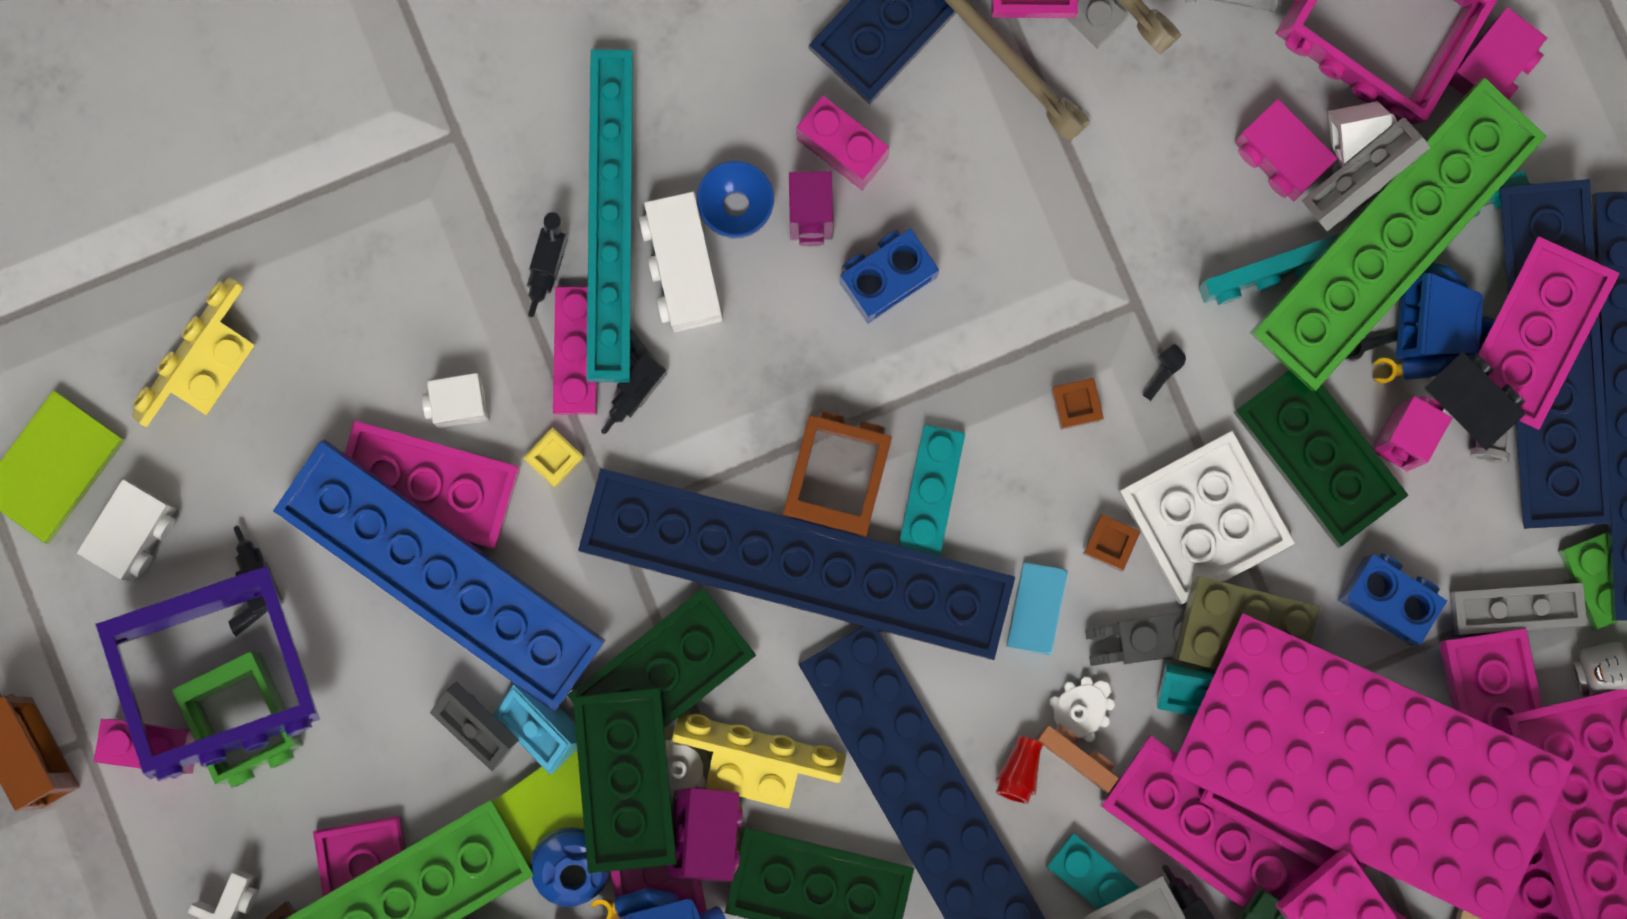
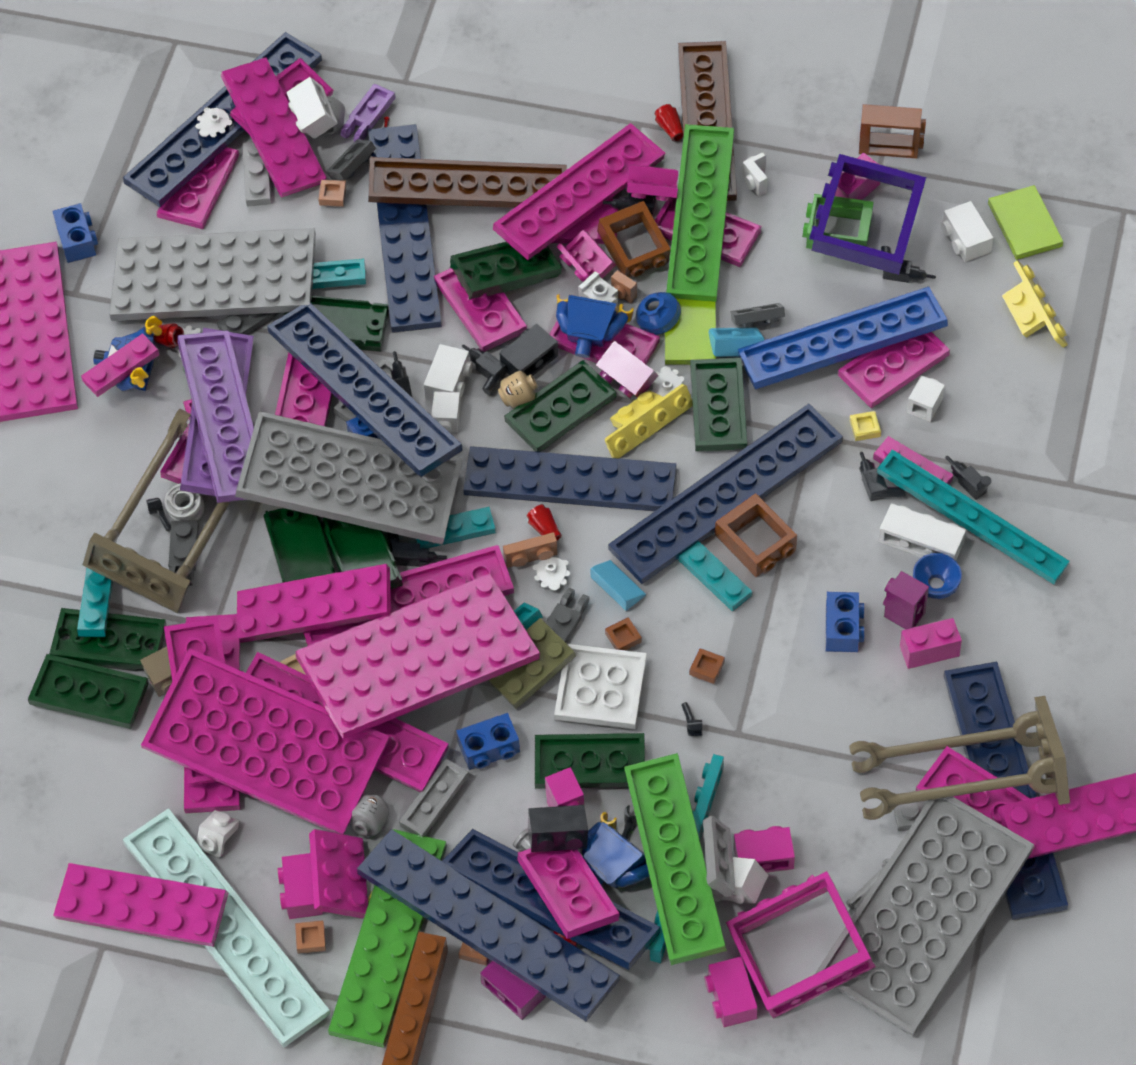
camera: 130 degrees right, 25 degrees down
(624, 781) = (680, 349): dark green plate -> none

